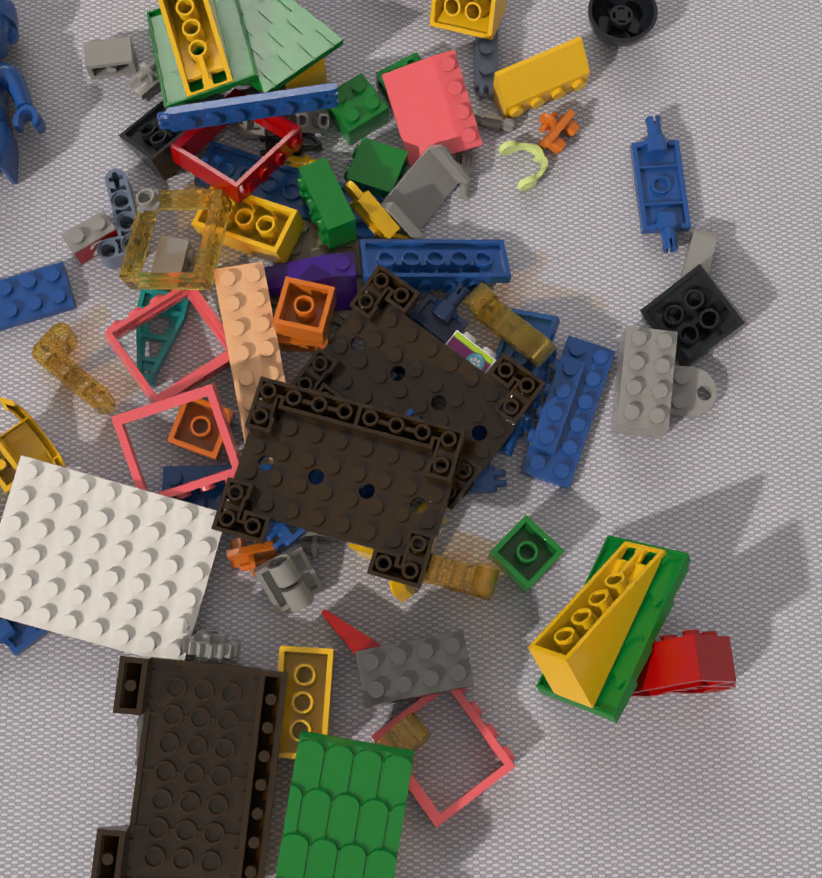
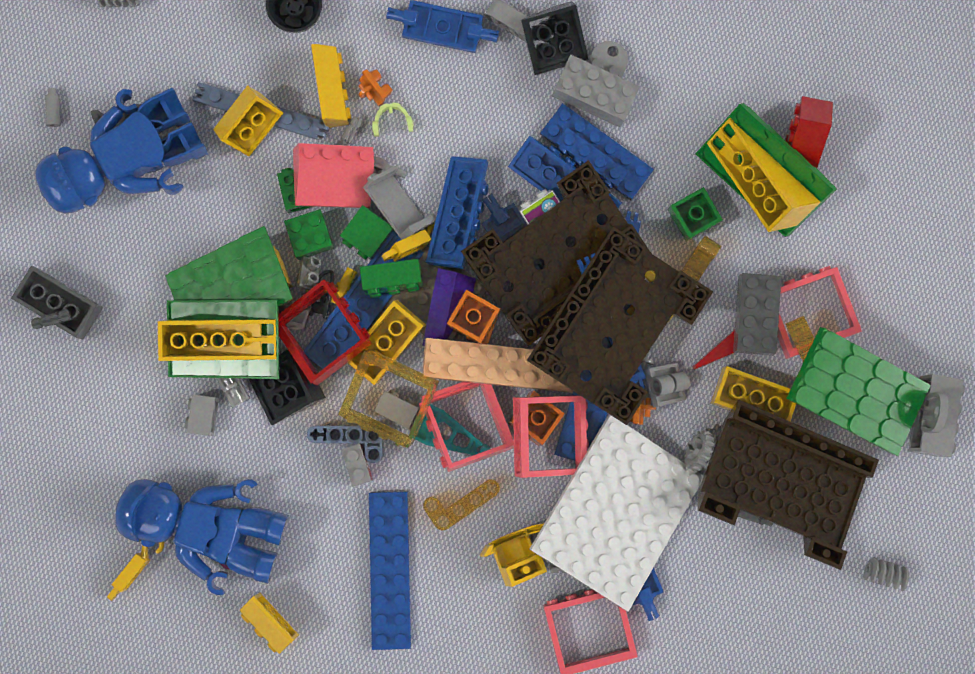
camera: 75 degrees left, 10 degrees up
(148, 200) = (347, 415): light grey plate -> none
(249, 107) = (298, 310): blue hinge -> none
(508, 325) = (527, 172): clear yellow beam -> none

